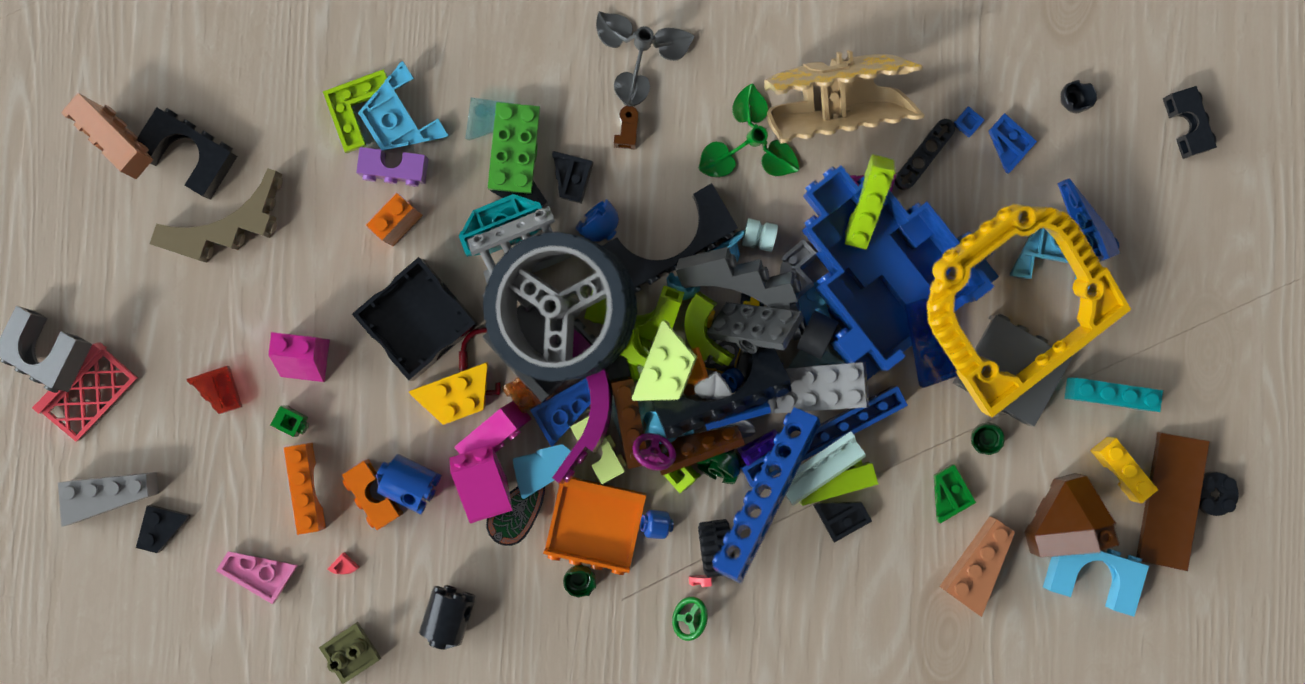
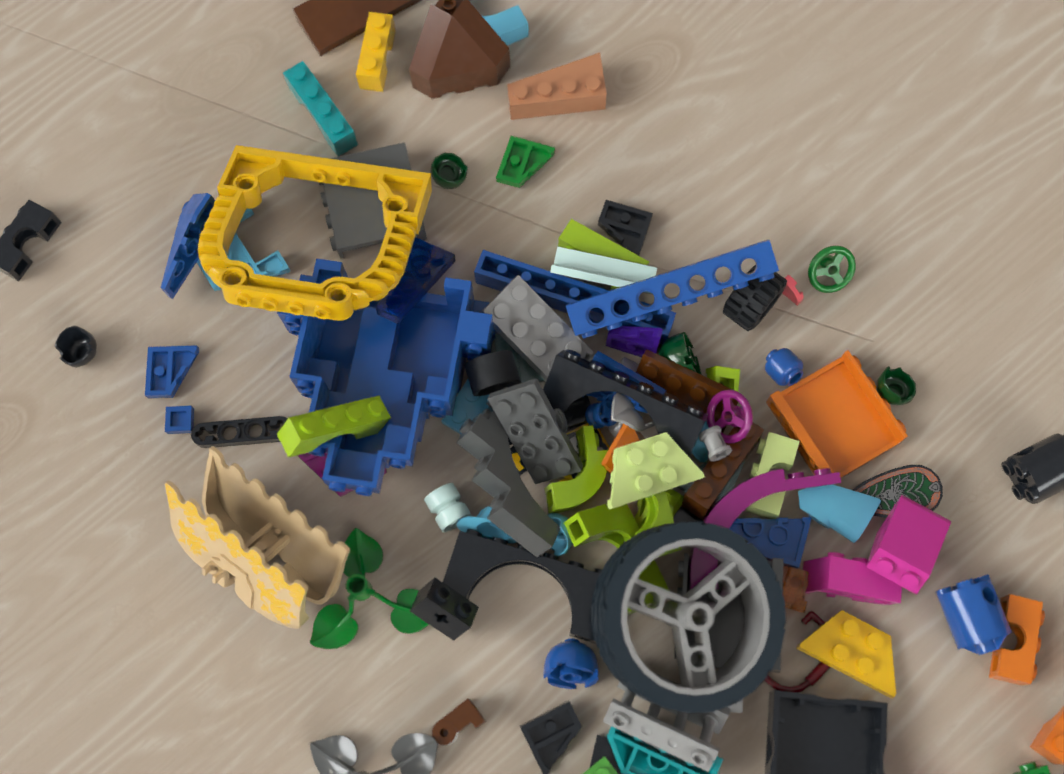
camera: 125 degrees left, 15 degrees down
(645, 426) = (715, 443): none -> light grey bush
(698, 176) = (444, 609): none -> black brick
(796, 260) = (440, 455): light grey plate -> none

